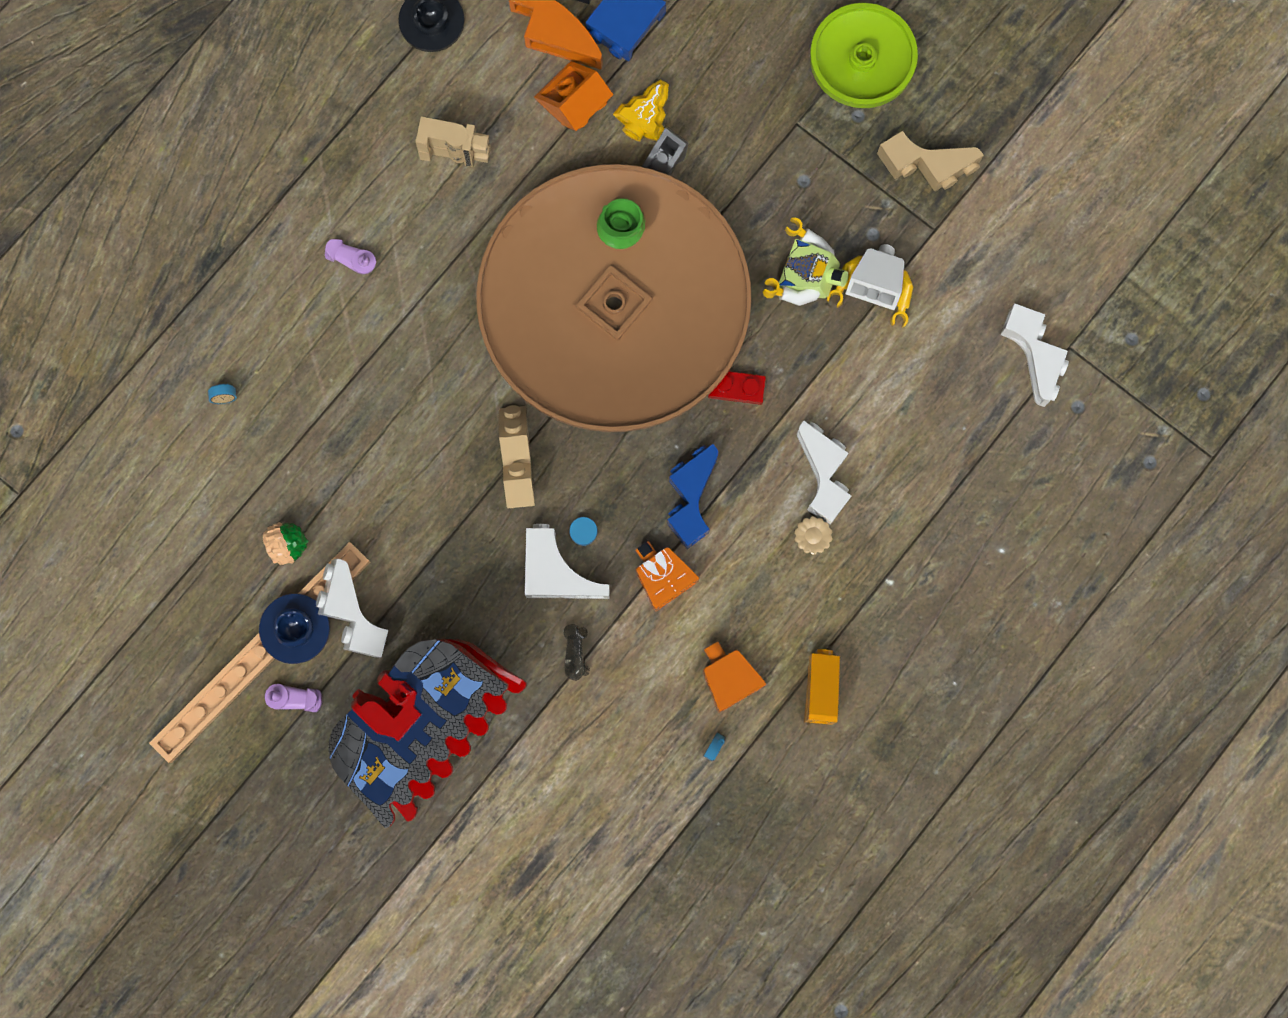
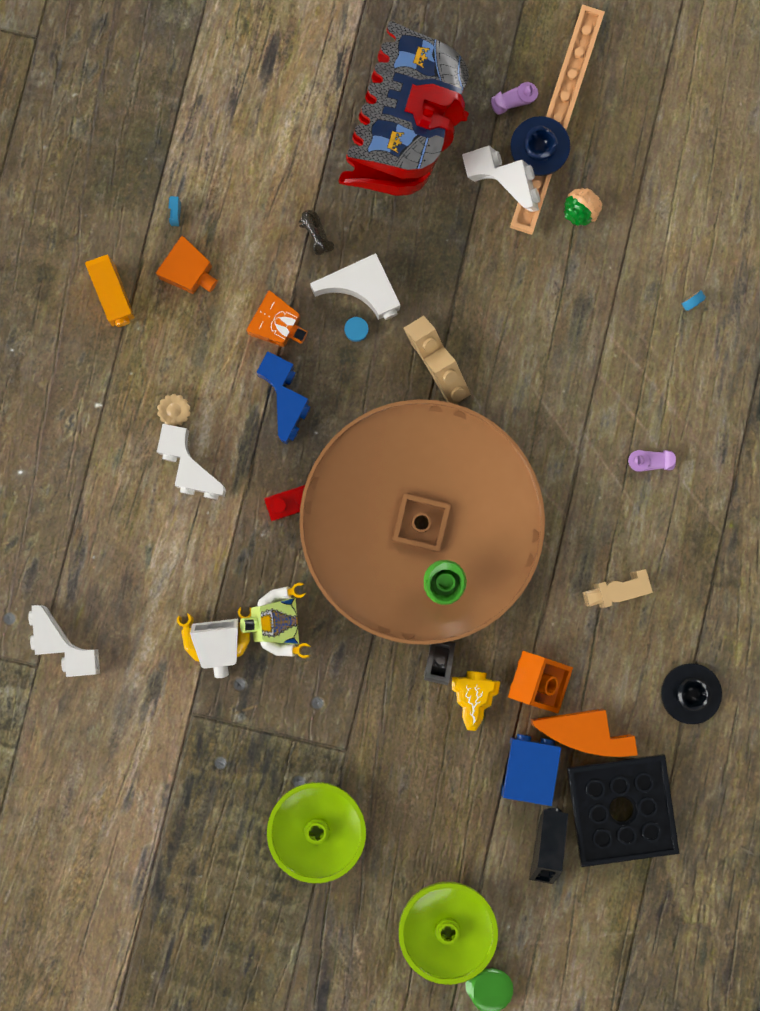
camera: 145 degrees right, 5 degrees up
(938, 166) = (209, 765): tan arch -> none

